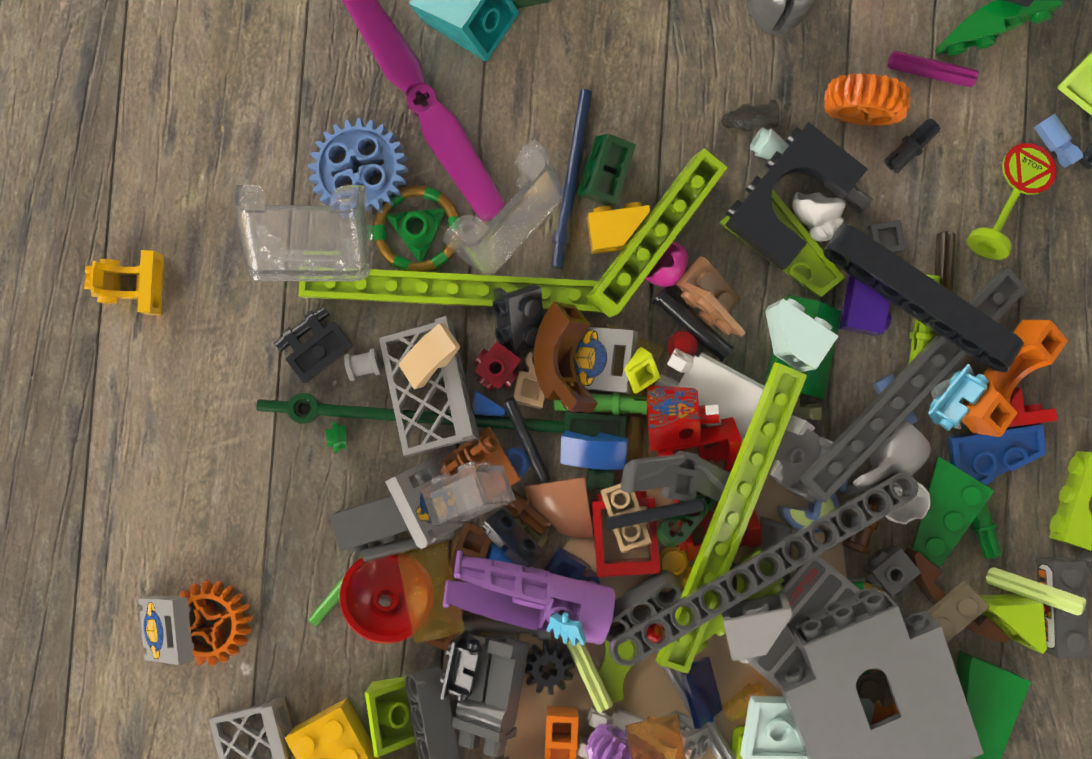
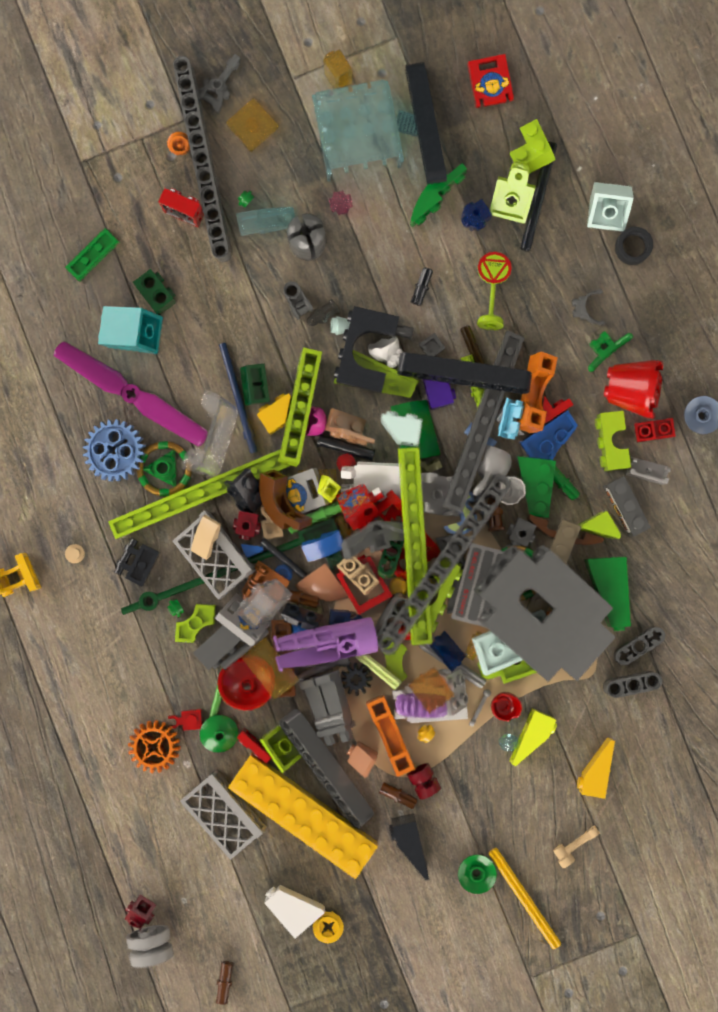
camera: 25 degrees left, 0 degrees up
(163, 641) = (128, 764): light grey container -> none
(231, 289) = (74, 553): none -> tan plate
(279, 608) = (190, 719): none -> red plate
(306, 240) = (106, 505): clear windscreen -> none
(315, 636) = (215, 725): none -> green dish
(353, 691) = (251, 742): none -> red plate
(362, 364) = (170, 560): light grey bush -> none
(369, 468) = (202, 616): none -> lime tile
(461, 655) = (304, 693): black hinge -> none
(567, 628) = (353, 650): medium azure piece -> none
(655, 514) = (371, 564): black bar -> none
(724, 84) = (298, 303): none -> dark grey piece
(755, 626) = (451, 599): light grey slope -> none
(867, 99) = (382, 275): orange gear -> none
(932, 69) = (413, 237): magenta axle -> none
(1036, 591) = (604, 505): yellowish green axle -> none
(1042, 79) = (475, 215): none -> clear blue brick
(1058, 140) = (502, 244): medium blue bar -> none

